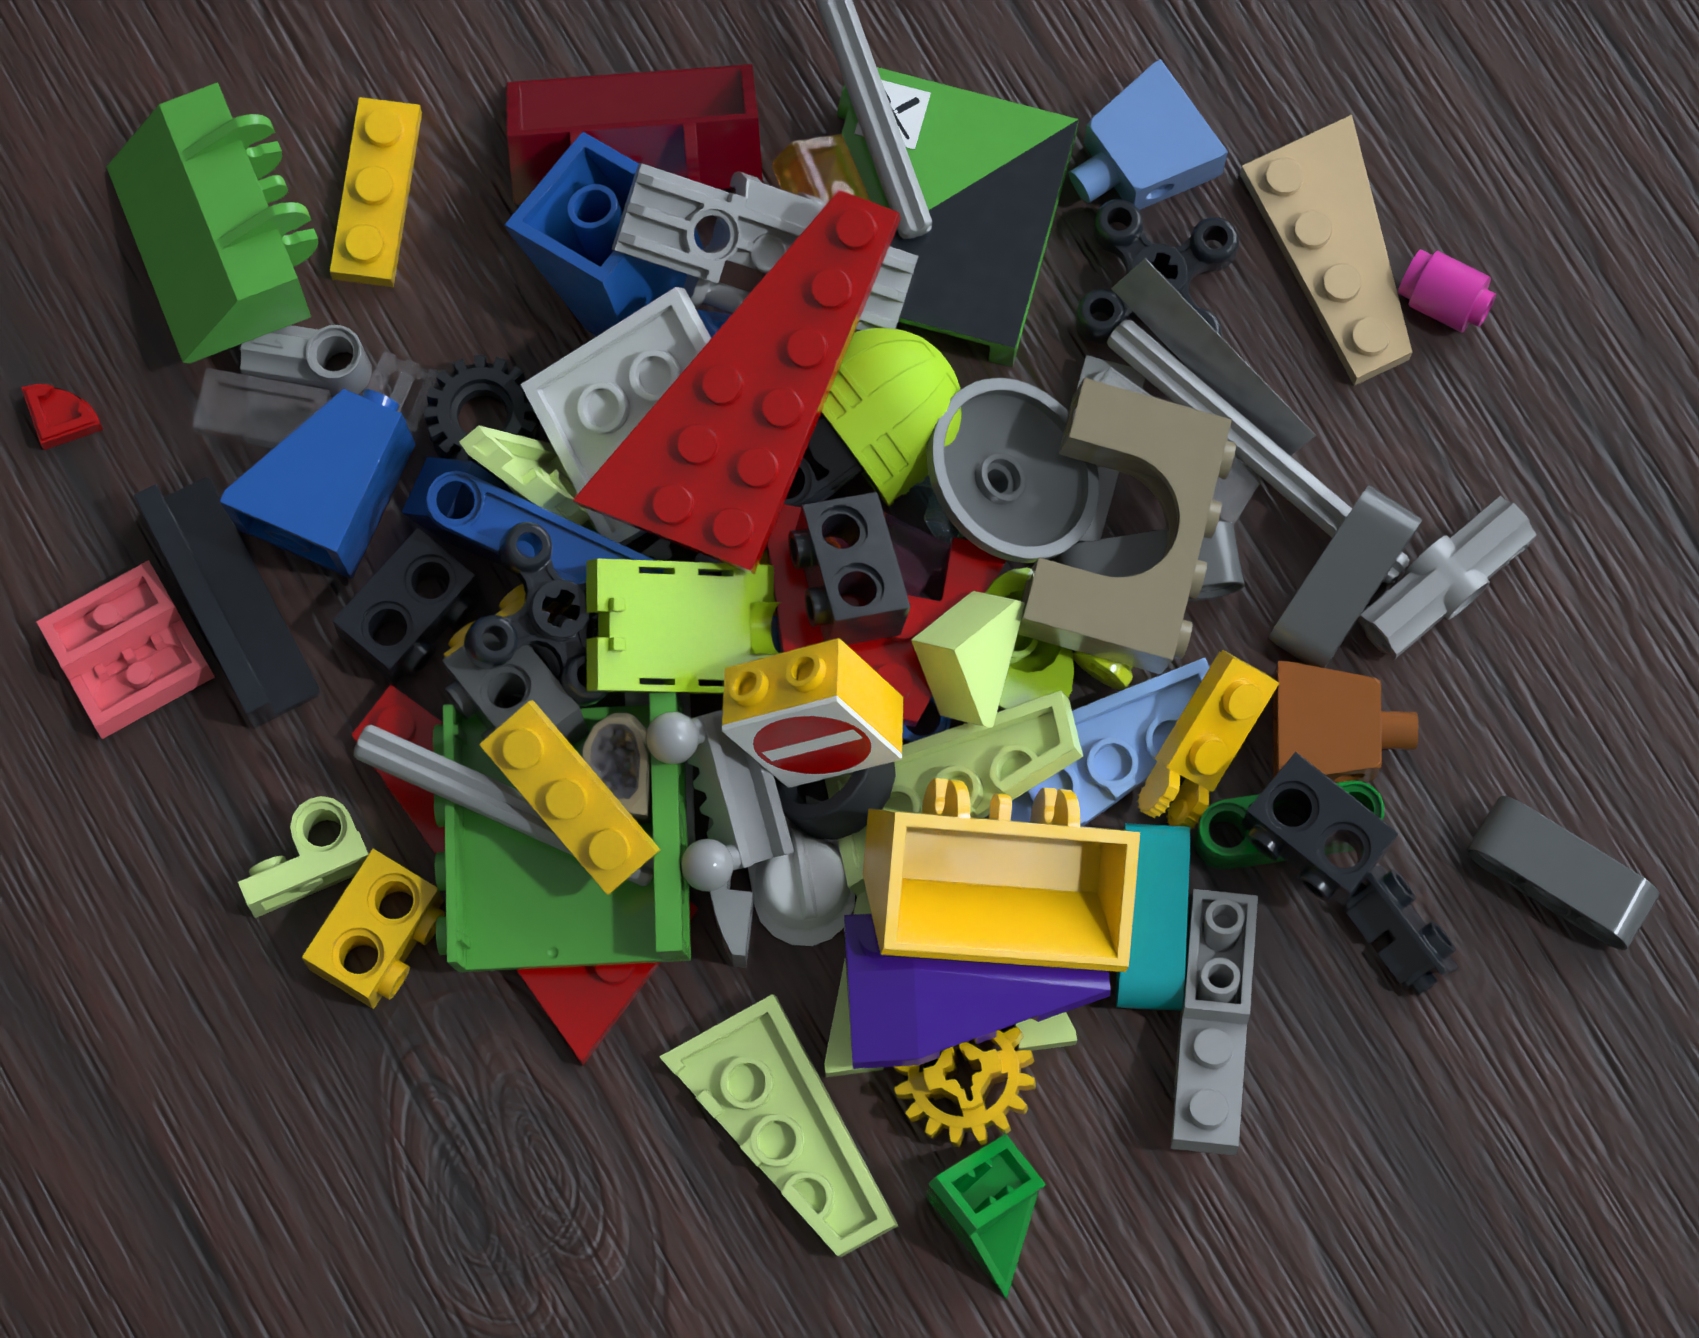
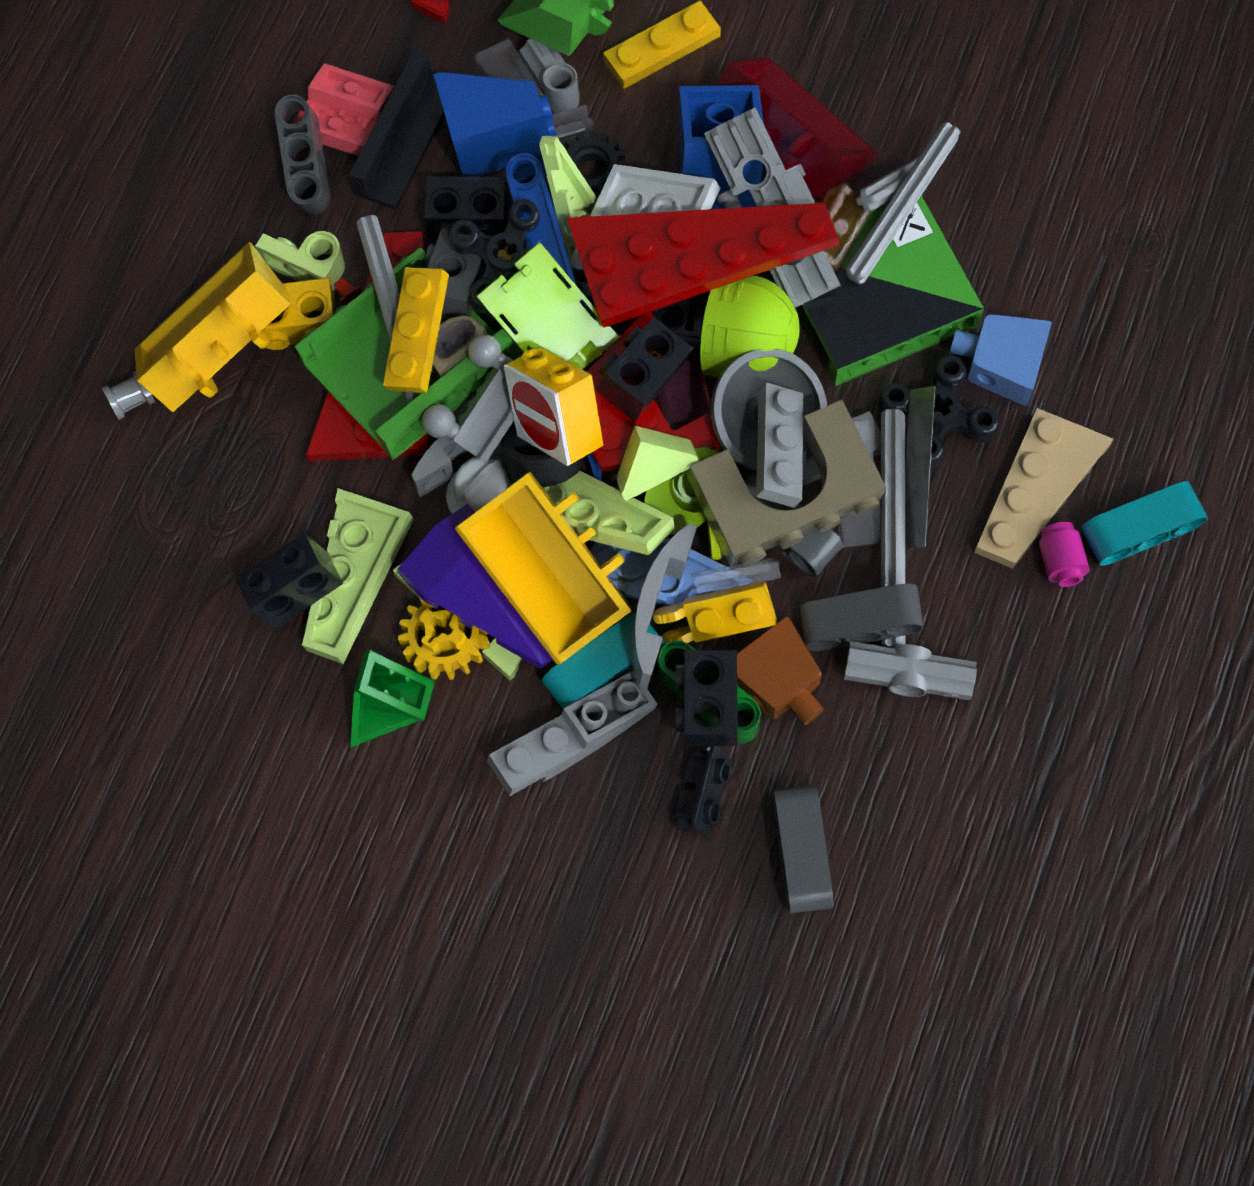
camera: 55 degrees right, 5 degrees down
(138, 725) = (292, 140): none -> dark grey beam
(310, 1219) = (127, 396): none -> light grey bush
(322, 1046) = (211, 329): none -> yellow piece
(389, 841) = (346, 291): none -> red piece
(749, 1207) = (289, 581): none -> black brick
(826, 88) = (883, 188): none -> light grey axle
(1080, 494) = (779, 445): none -> light grey plate
(1183, 681) = (735, 575): none -> clear tile
(1197, 857) = (669, 562): none -> light grey slope
(1483, 171) = (1144, 523): none -> teal beam

